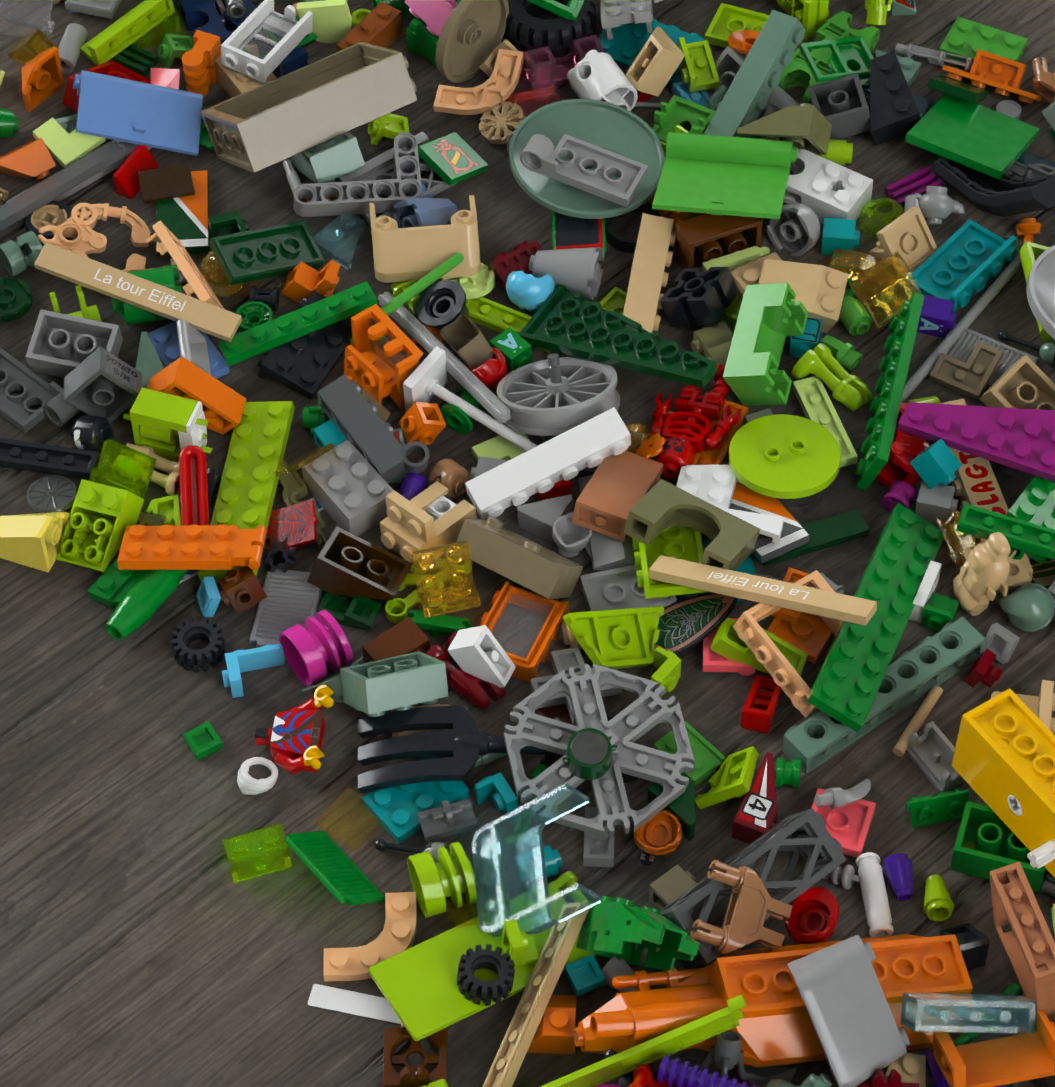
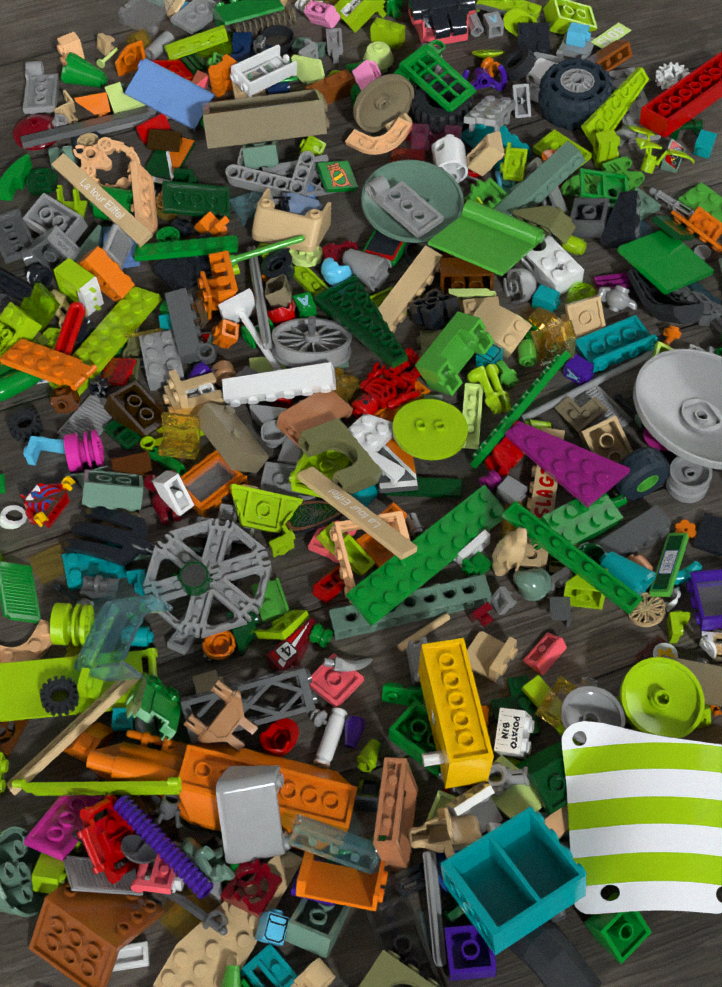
camera: 25 degrees right, 5 degrees up
(208, 596) = (46, 397): medium azure tile -> none
(500, 123) = (383, 159): tan wheel -> none
(651, 446) = (351, 395): orange plant -> none
(936, 464) = (518, 468): teal brick -> none

